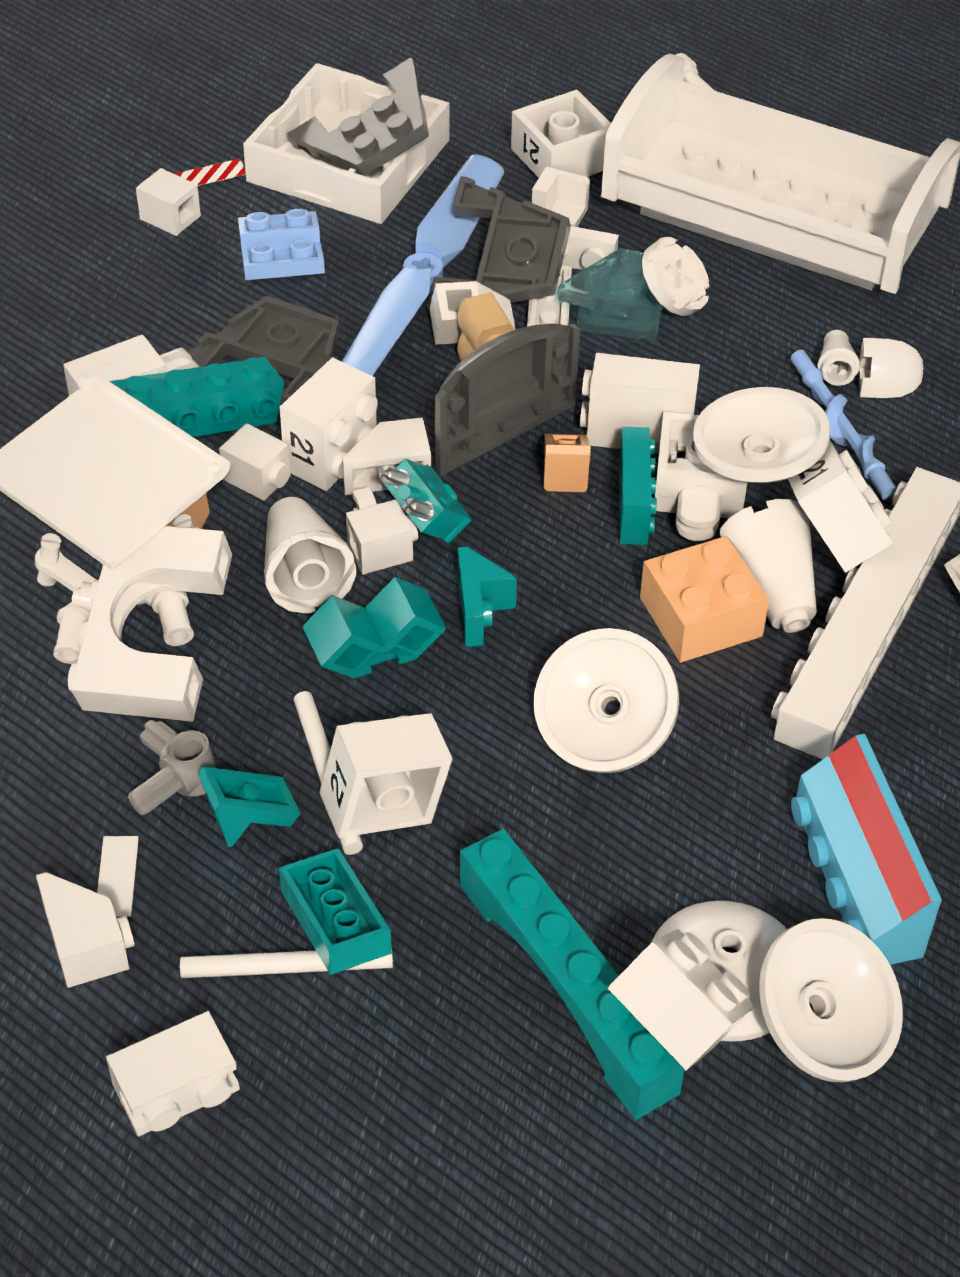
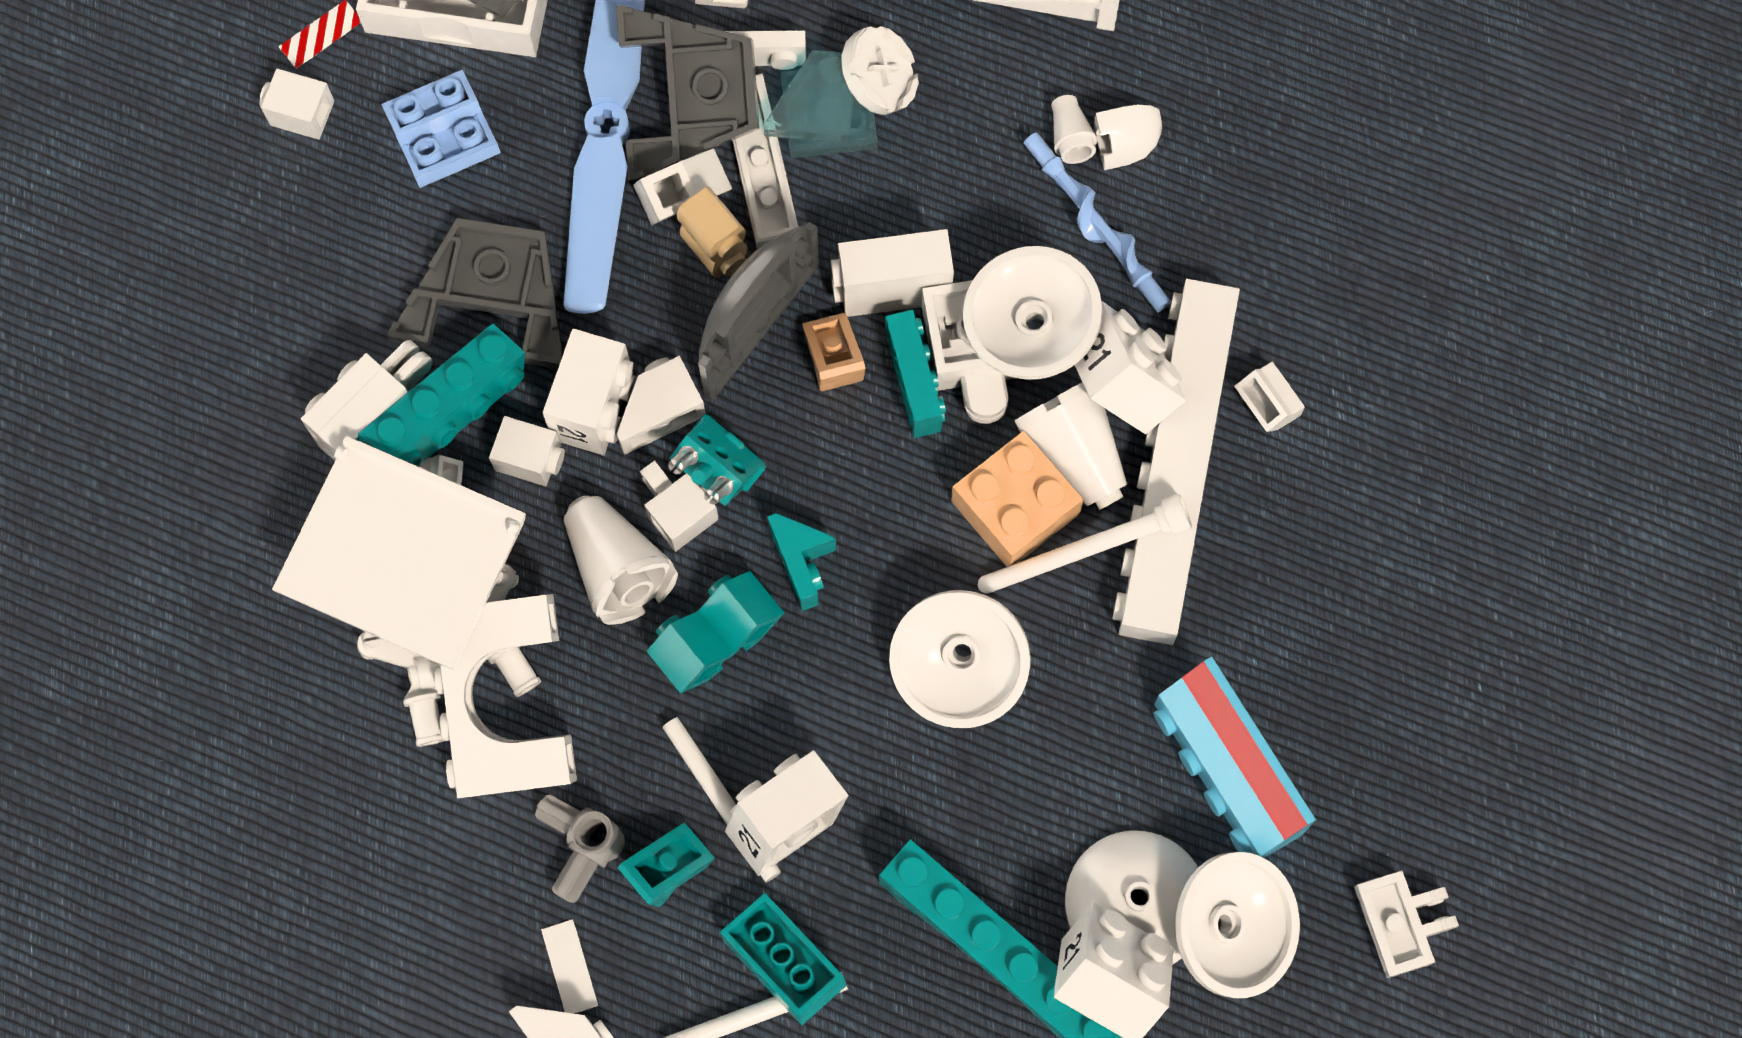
camera: 15 degrees left, 25 degrees up
(849, 627) = (1167, 517): none -> white piece

